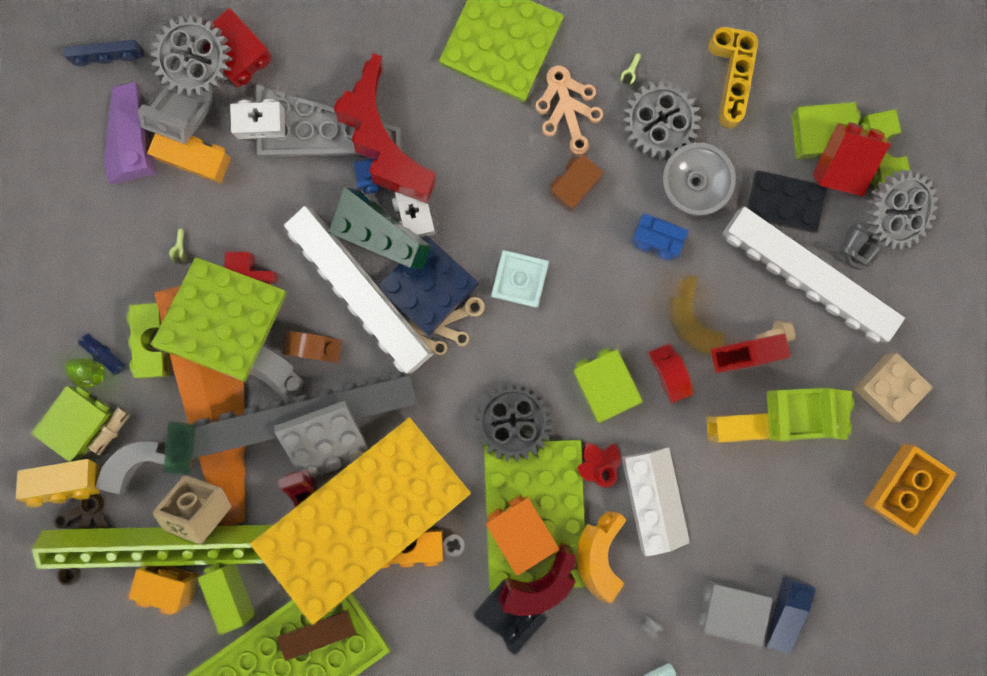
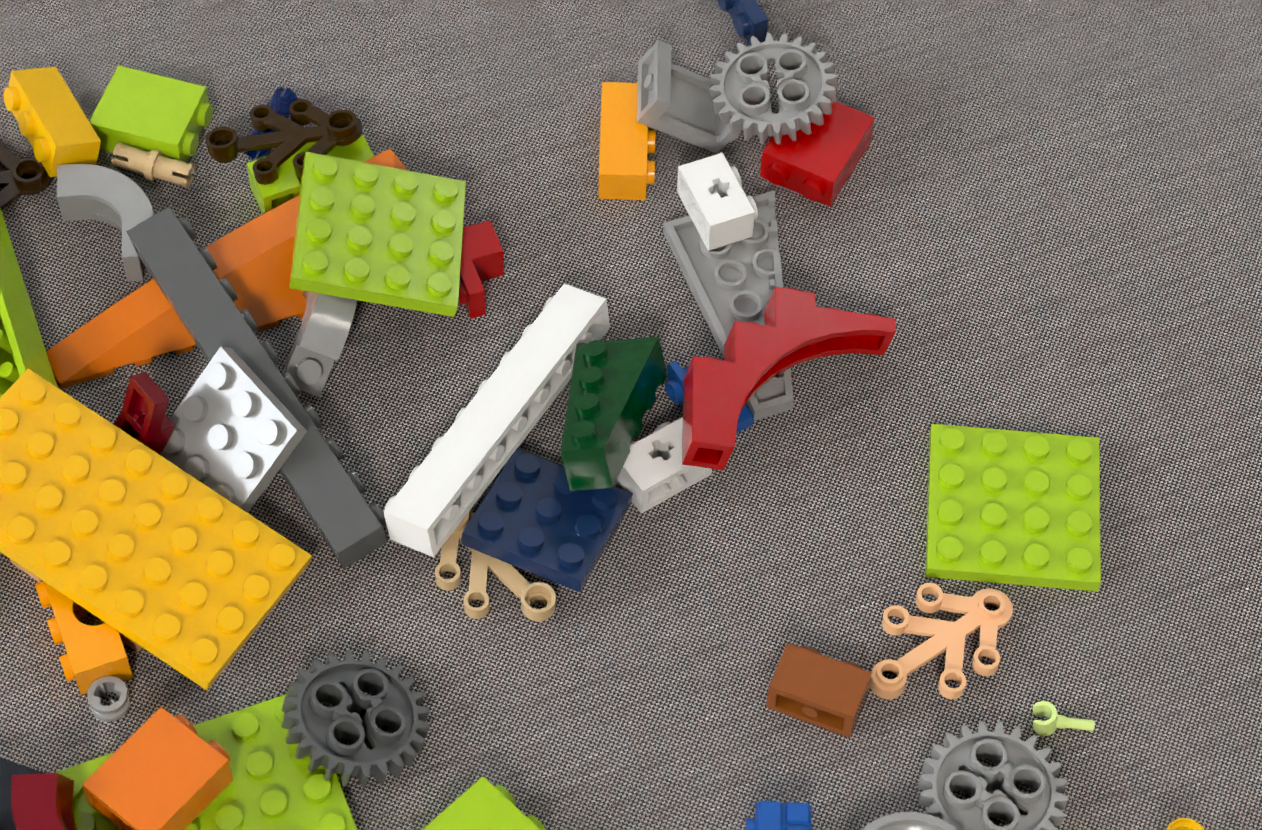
camera: 65 degrees right, 30 degrees down
(84, 372) = (233, 106): clear neon green animal -> none
(125, 347) = (331, 129): none -> dark brown plant
(126, 140) = (584, 66): medium lavender wedge -> none
(177, 250) = (466, 169): yellowish green hand -> none
(179, 447) = (156, 229): clear green plate -> none
(192, 509) = (60, 290): tan brick -> none
(312, 346) = (382, 387): dark orange brick -> none
(520, 279) = (614, 656): light aqua plate -> none

